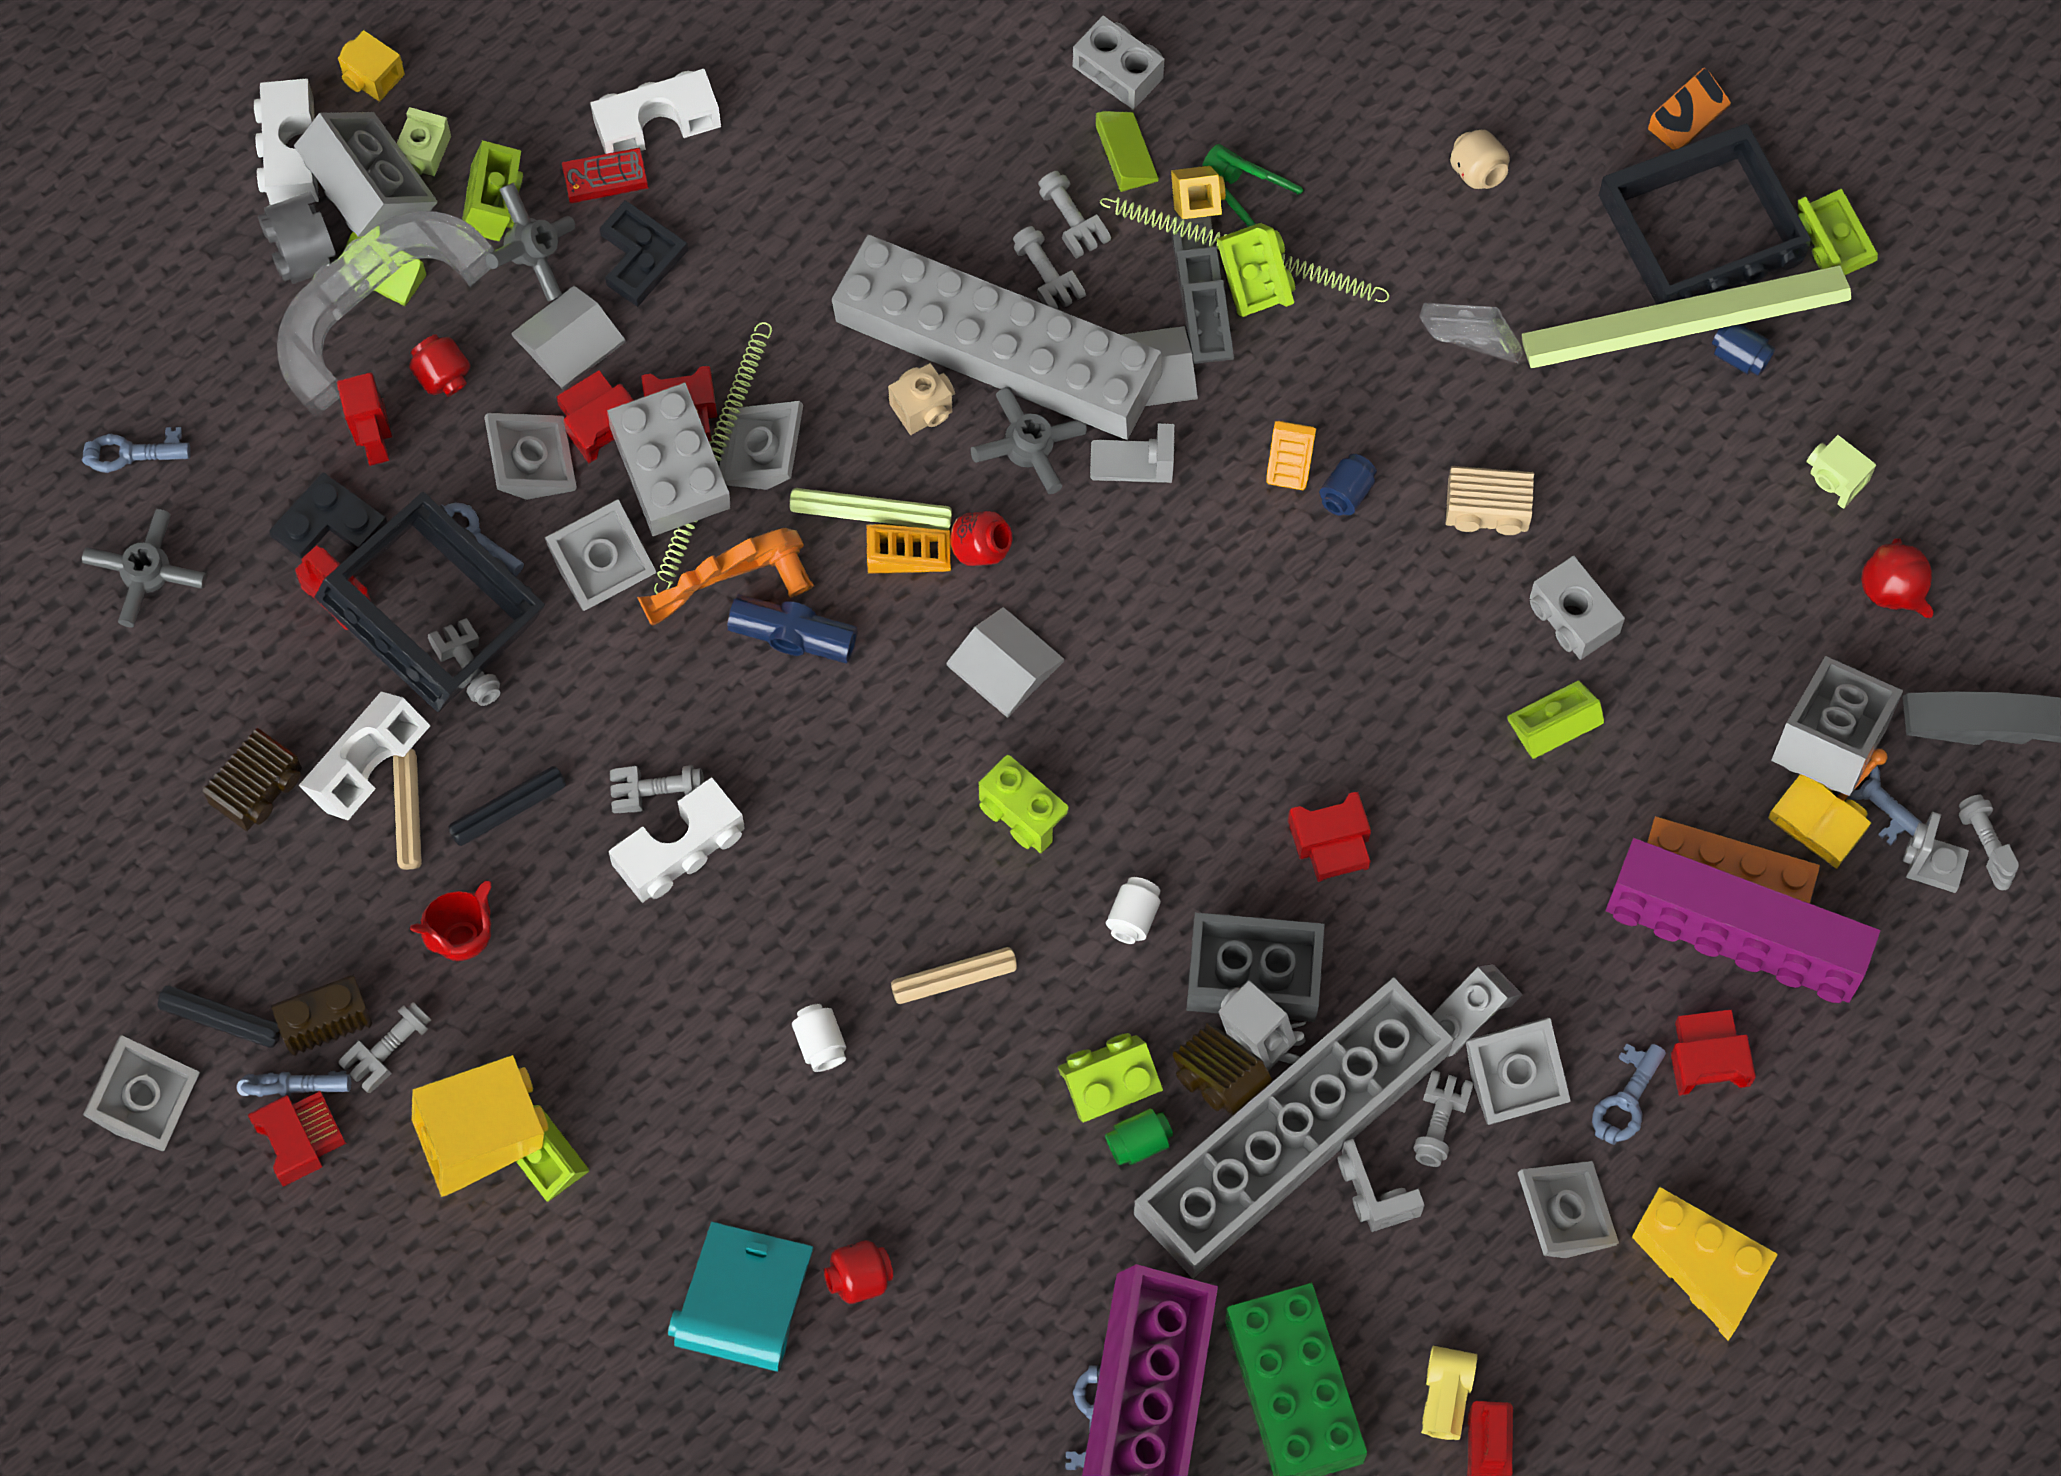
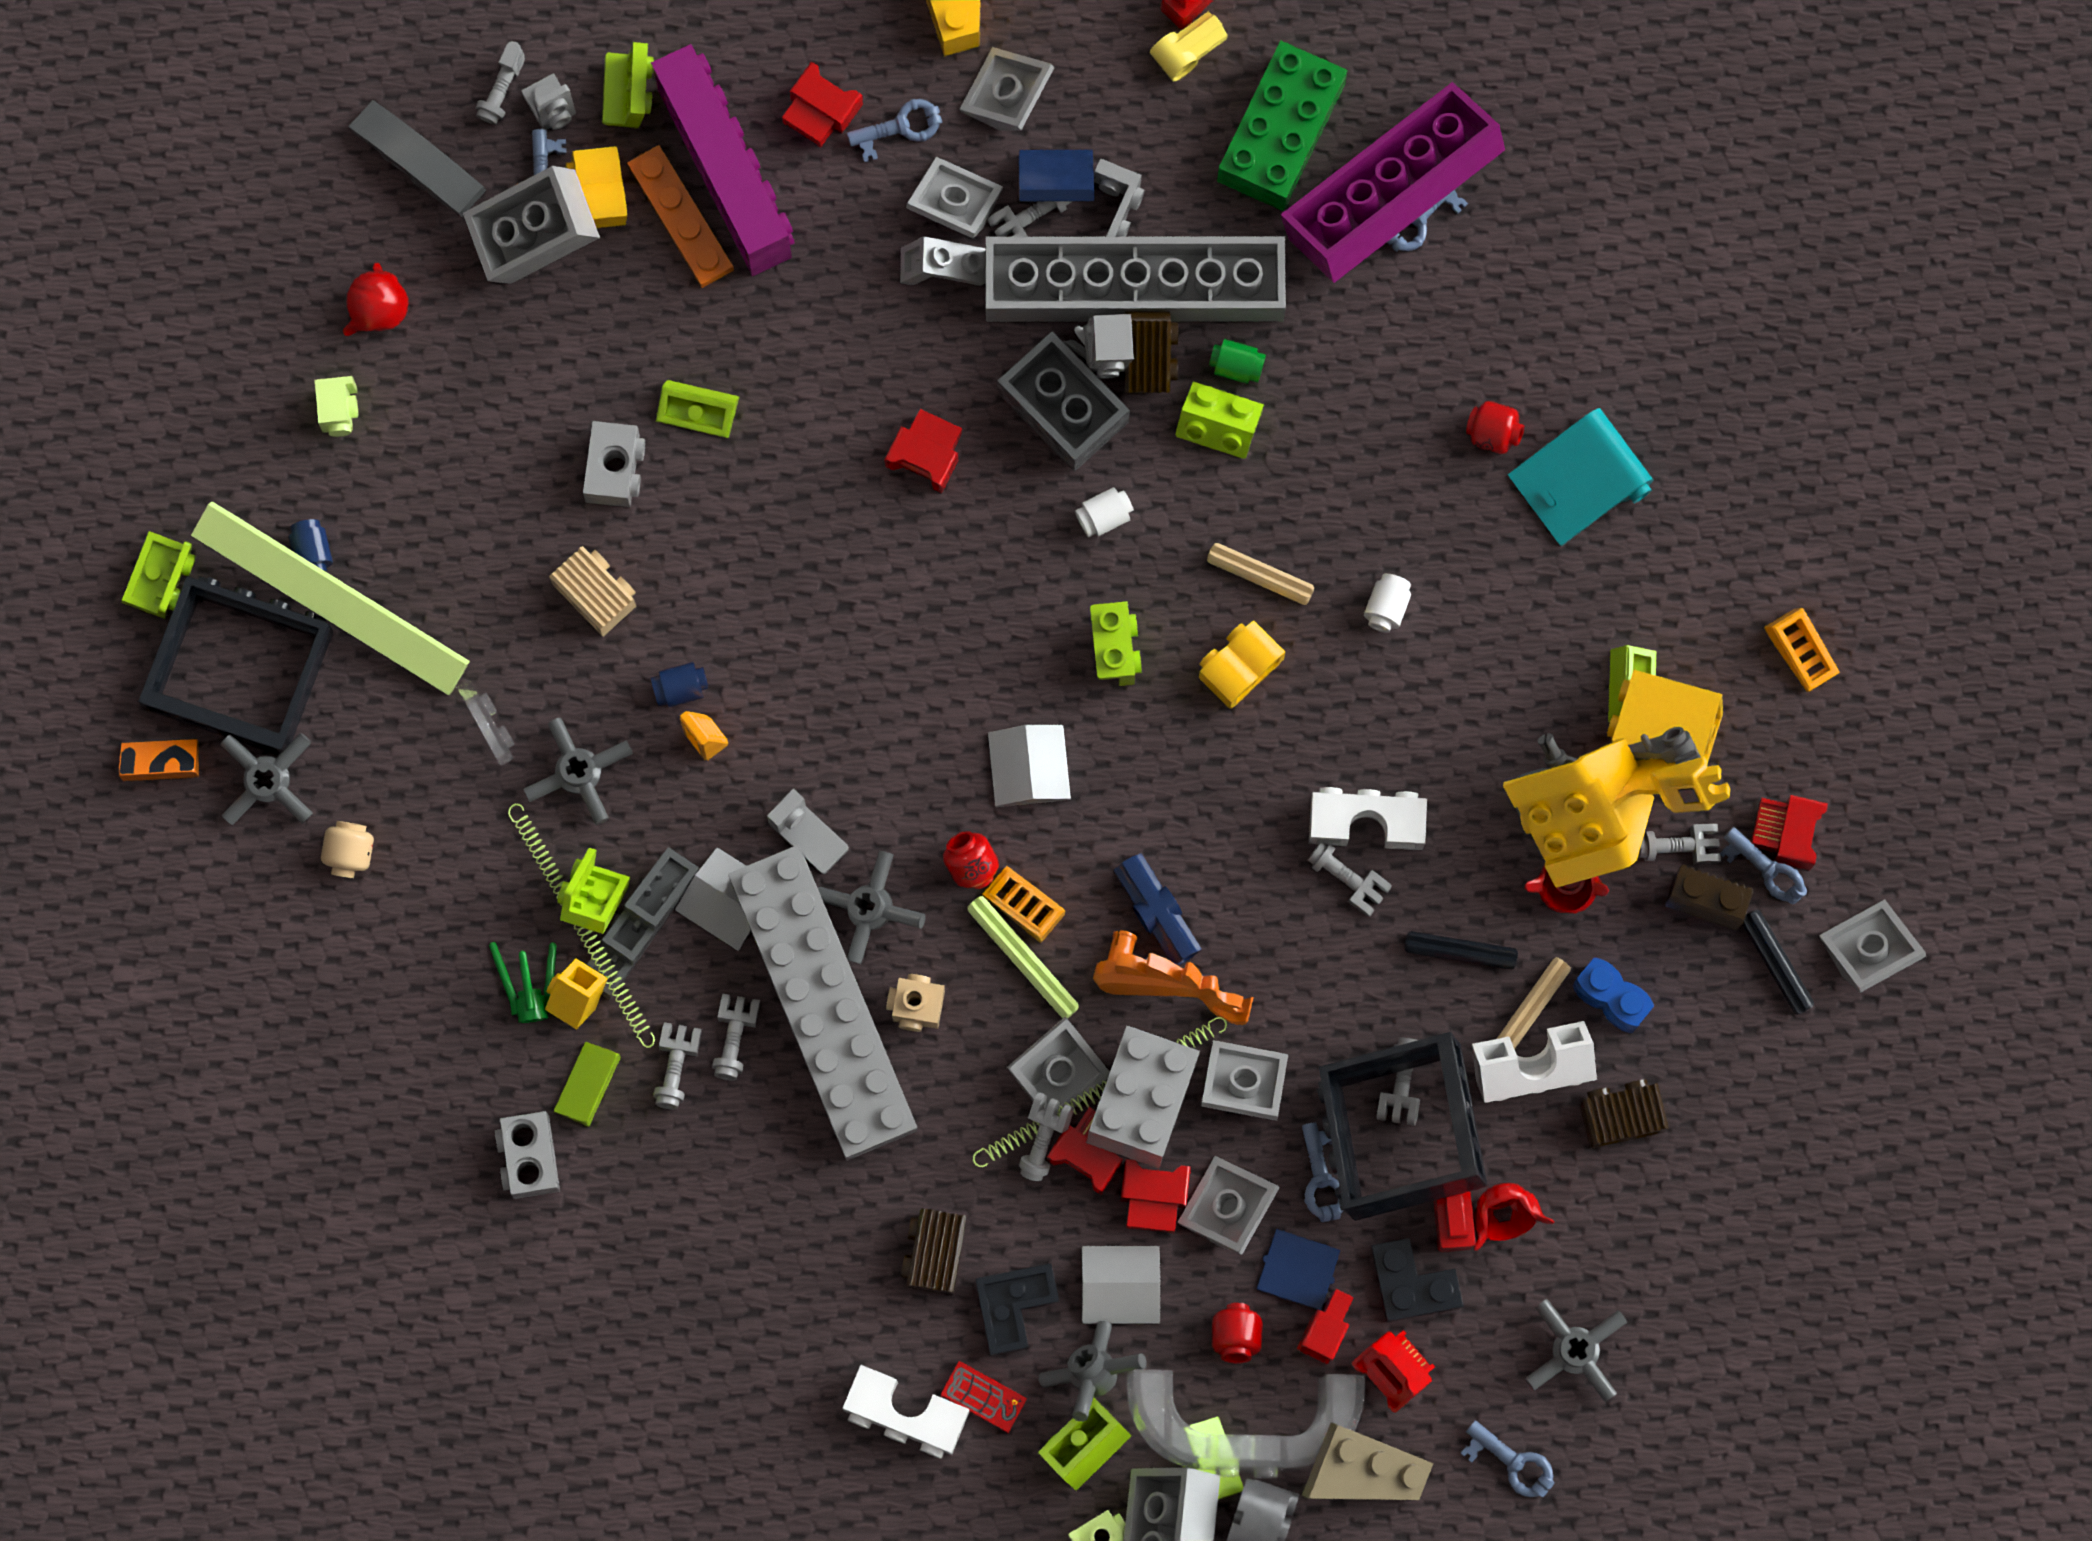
camera: 140 degrees left, 10 degrees up
(246, 340) = (1364, 1469): none -> dark tan wing
(282, 434) = (1395, 1368): none -> red piece
(293, 624) = (1525, 1213): none -> red hair
(352, 865) = (1605, 989): none -> blue brick
(432, 458) = (1298, 1269): none -> dark blue piece
(441, 1318) = (1791, 656): none -> light orange slope
(473, 993) = (1596, 808): none -> yellow piece
(727, 387) = (1034, 1165): none -> light grey hinge
(736, 239) = (935, 1251): none -> dark brown brick
(901, 880) = (1240, 664): none -> yellow brick
(1365, 368) = (572, 784): none -> dark grey bar
(1449, 1161) = (1056, 175): none -> dark blue tile
(1593, 156) = (281, 778): none -> dark grey bar
(1900, 935) = (625, 87): none -> lime bracket

